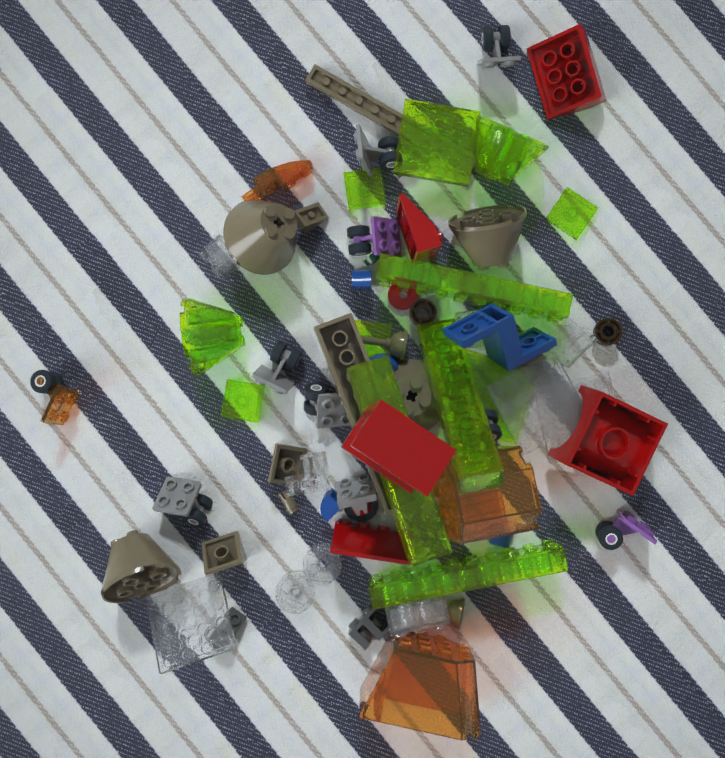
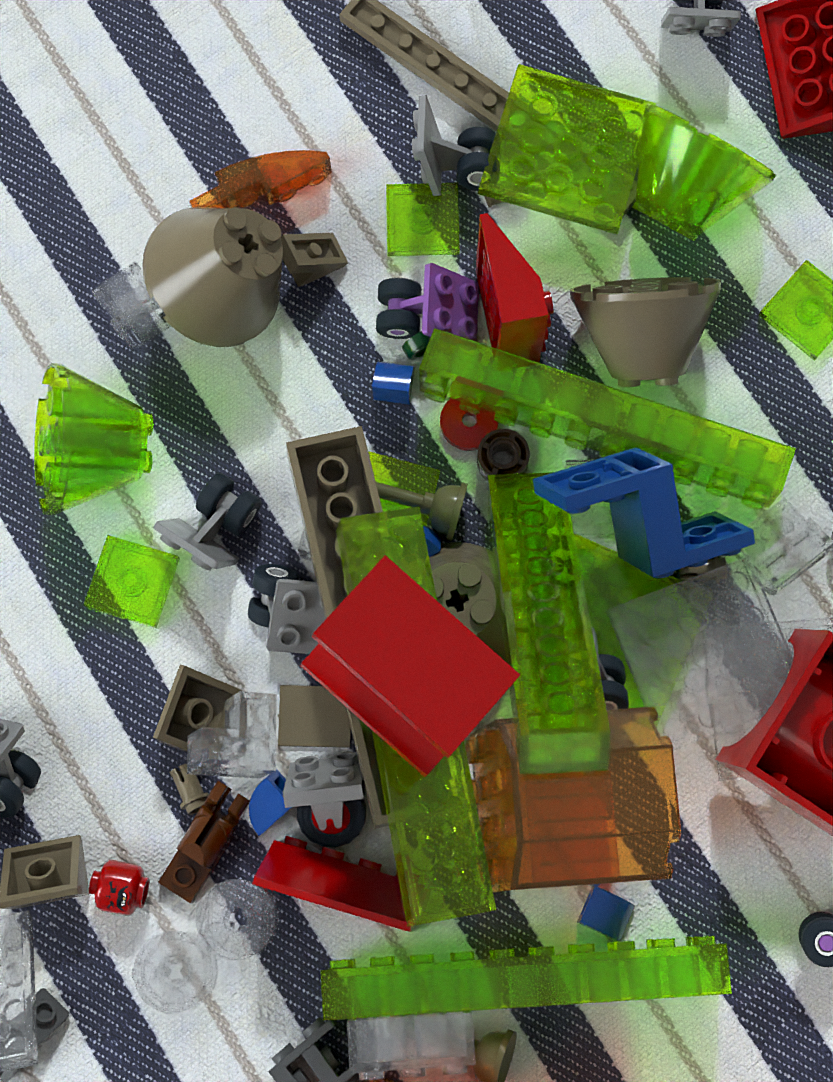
camera: 10 degrees right, 10 degrees down
(261, 555) = (119, 887): none -> red head
(299, 528) = (203, 843): none -> reddish brown plate
(341, 460) = (312, 718): none -> dark tan window

